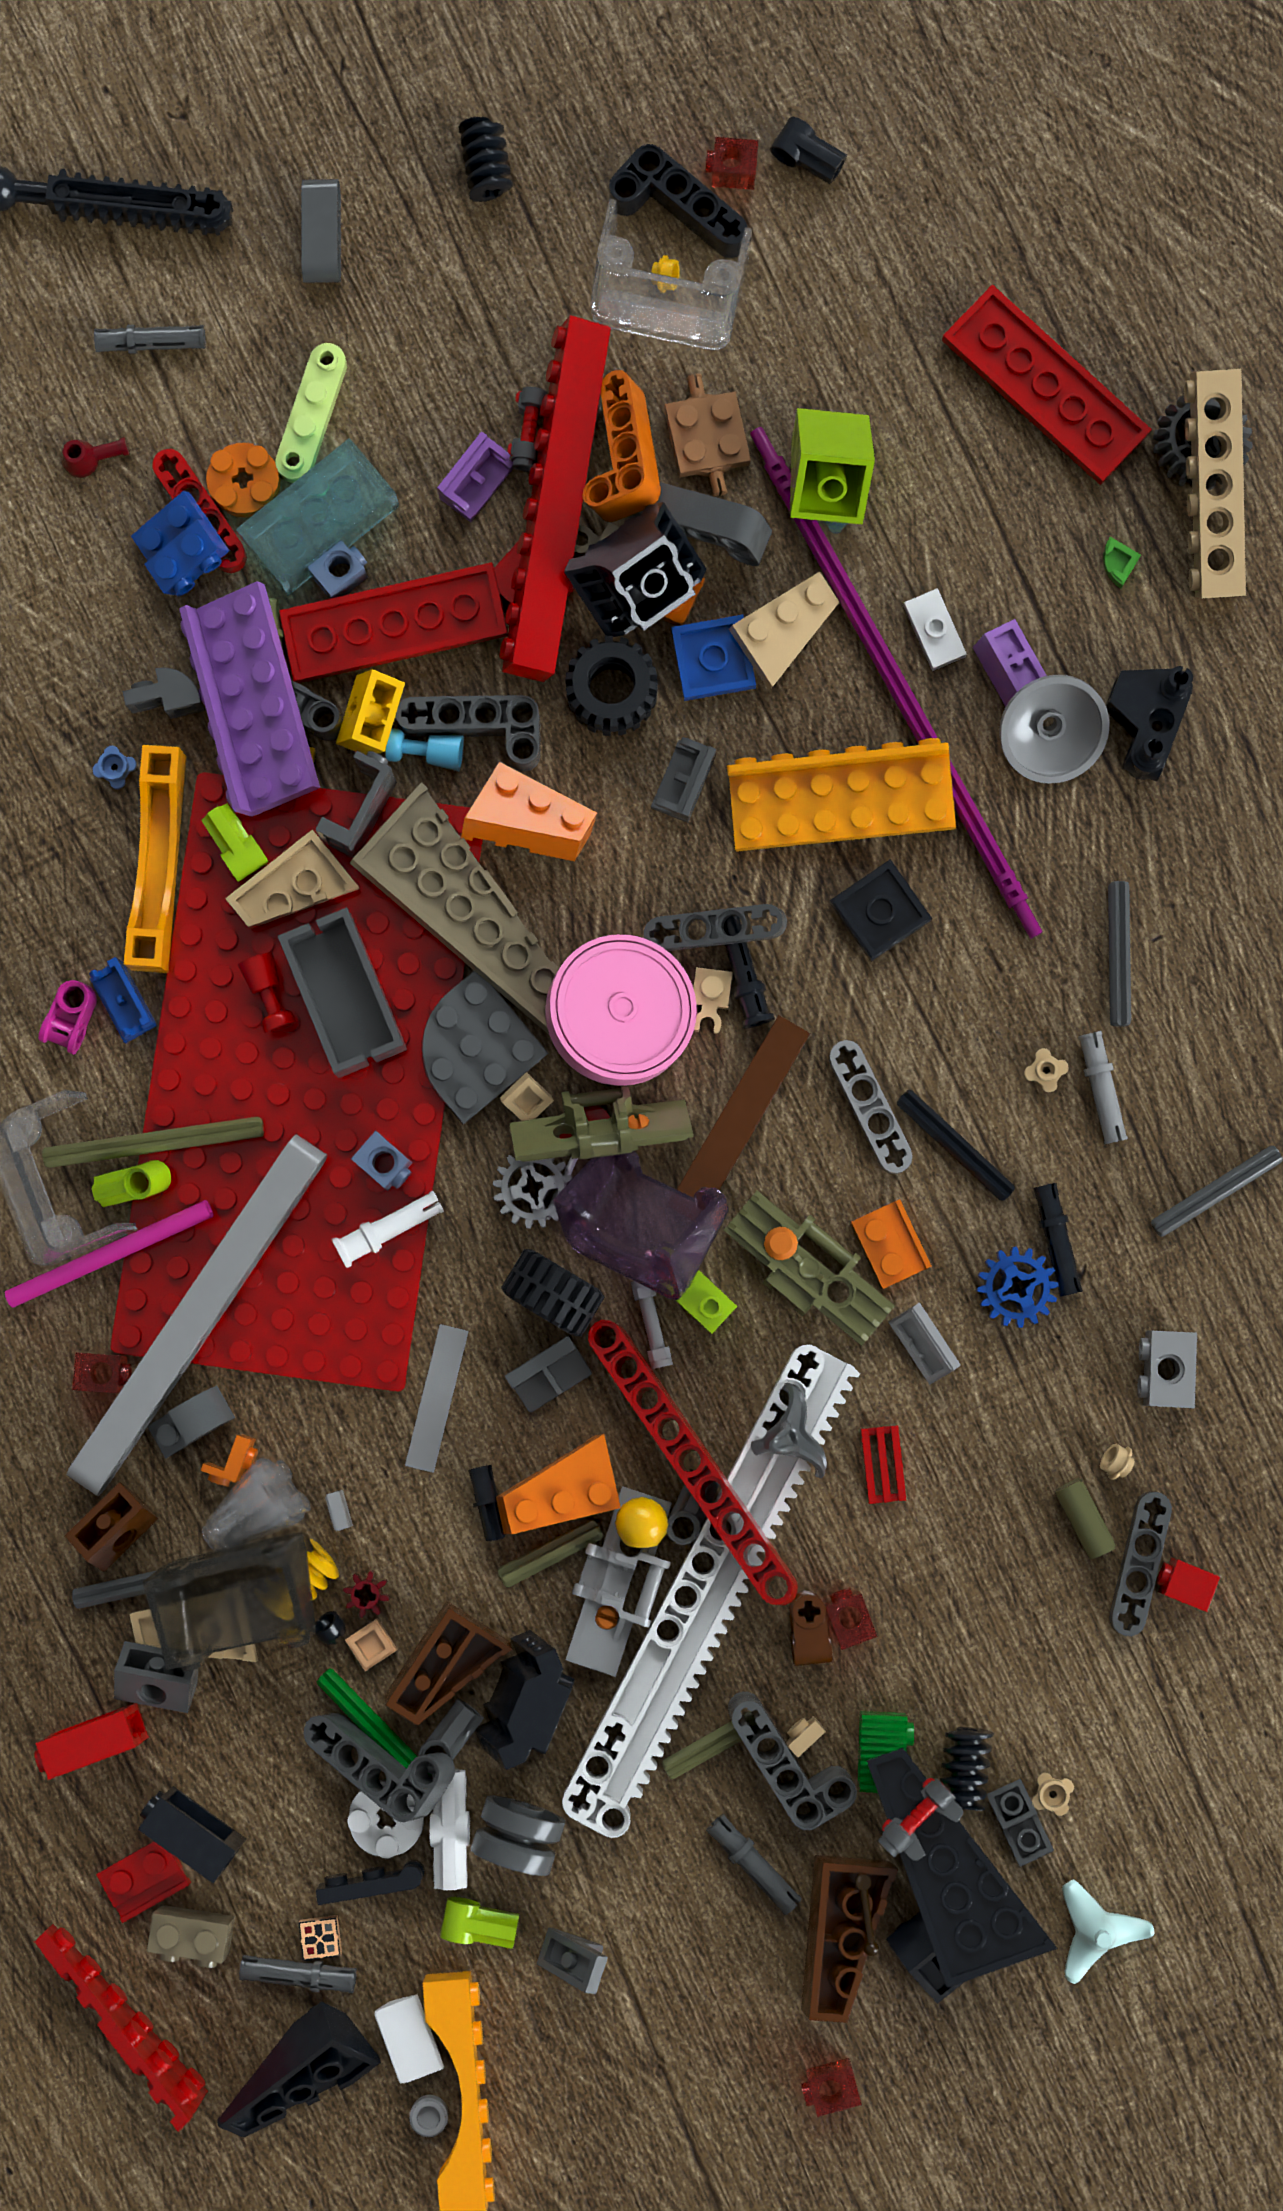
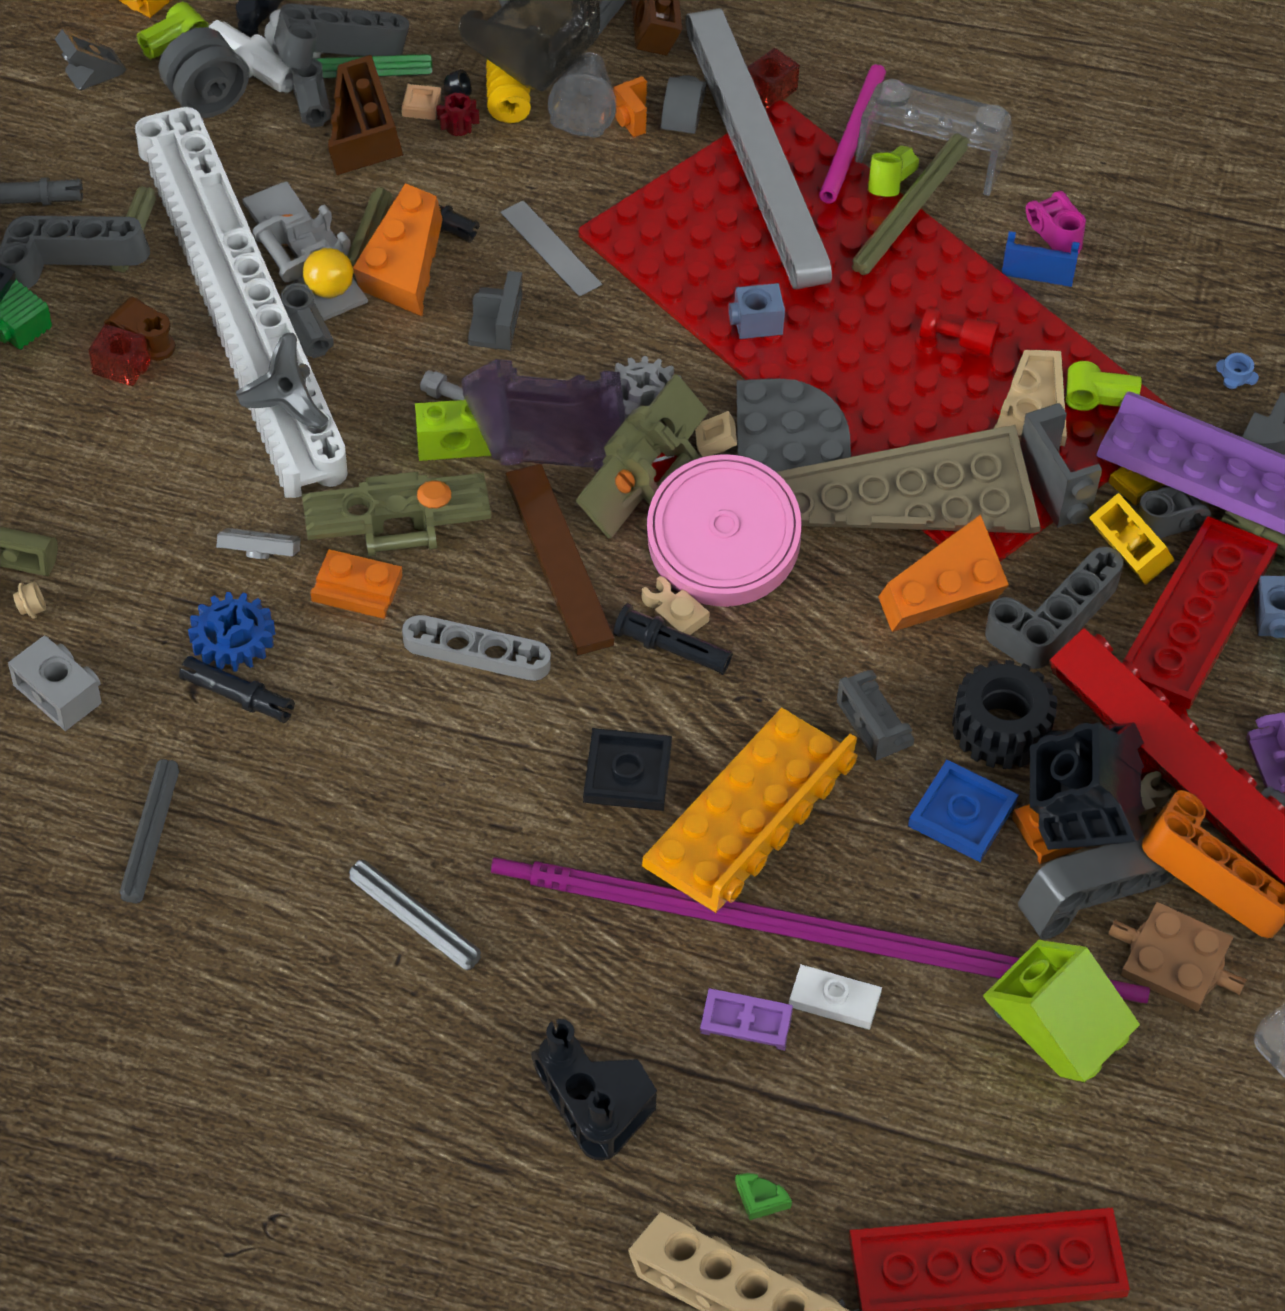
camera: 125 degrees right, 30 degrees down
(160, 825) = (1186, 375): light orange arch -> none
(338, 1510) = (532, 137): light grey tile -> none
(342, 993) = (913, 364): dark grey piece -> none
(371, 1236) = (708, 272): white pin -> none
(440, 750) = (1052, 571): medium azure piece -> none
(525, 1702) = (278, 140): black slope -> none
(552, 1292) = (551, 332): black tyre -> none
(705, 1474) = (332, 324): red beam -> none
(715, 931) = (721, 632): dark grey beam -> none
(784, 626) = (942, 875): tan wing -> none
(804, 1734) = (74, 274): tan plate -> none
(898, 1466) = (207, 455): red tile -> none
(956, 1145) = (384, 680): black axle -> none
(1036, 1074) = (379, 794): tan plate -> none
(1065, 746) = (655, 999): light grey dish -> none
(1102, 1087) = (334, 819): light grey pin -> none

